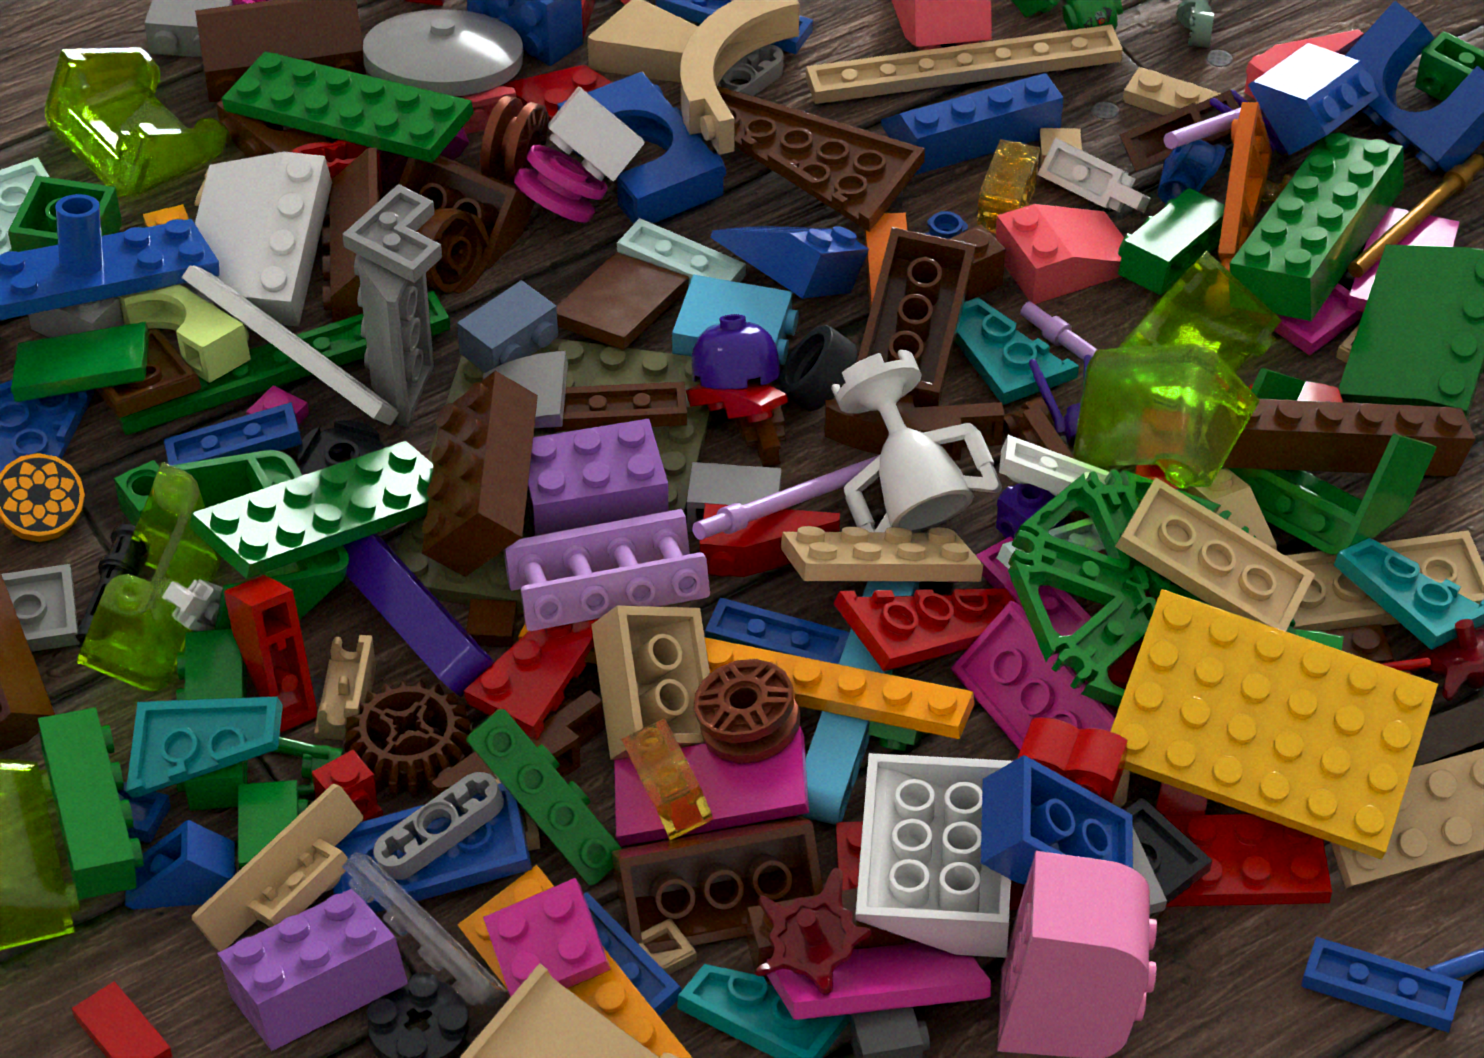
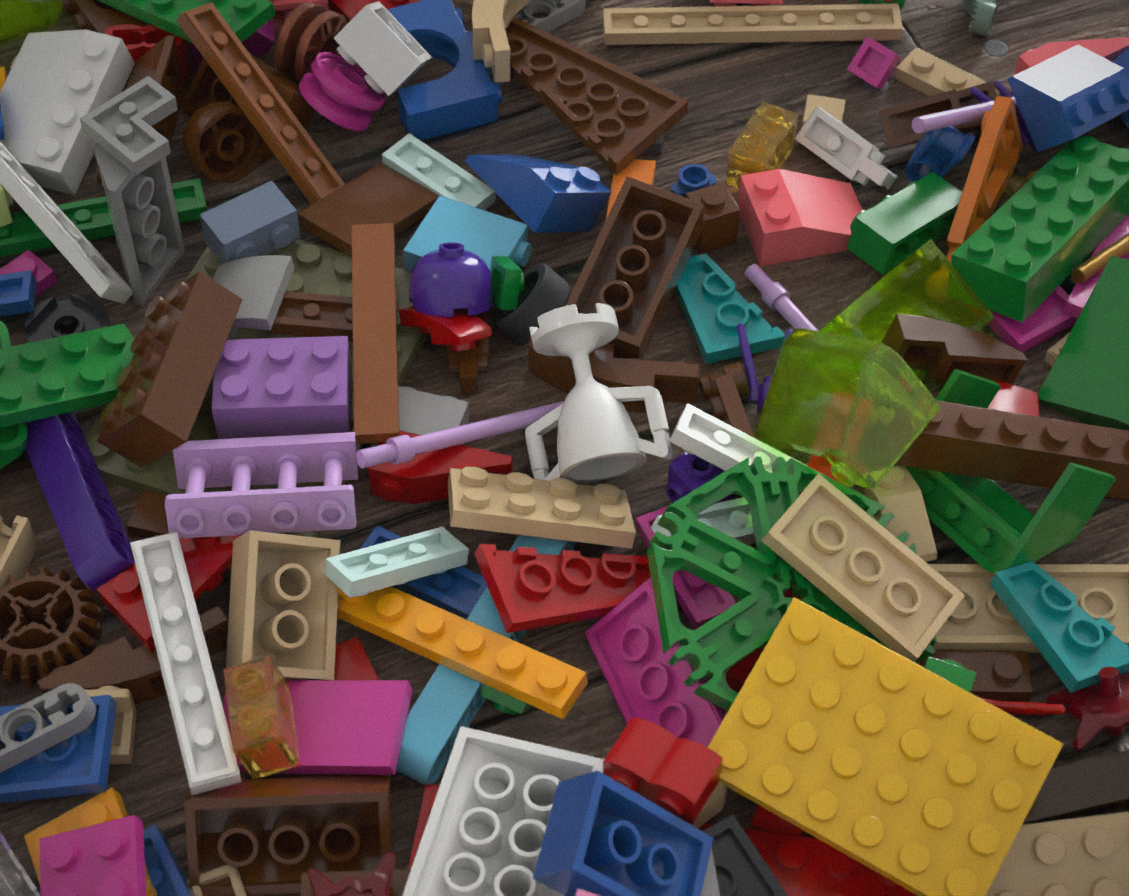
camera: 10 degrees right, 5 degrees up
(485, 204) = (260, 102): none -> dark orange tile
(544, 795) = (133, 710): green bracket -> none
(580, 739) = (185, 664): none -> white tile
(671, 412) = (374, 333): none -> dark orange tile
(747, 711) = (357, 657): copper wheel -> none
(757, 622) = (396, 562): none -> light aqua plate
(791, 348) = (507, 282): none -> green plate
(977, 121) = (742, 81): blue slope -> none
(1101, 88) = (874, 63): none -> dark pink plate
(1250, 350) = (947, 346): none -> reddish brown slope

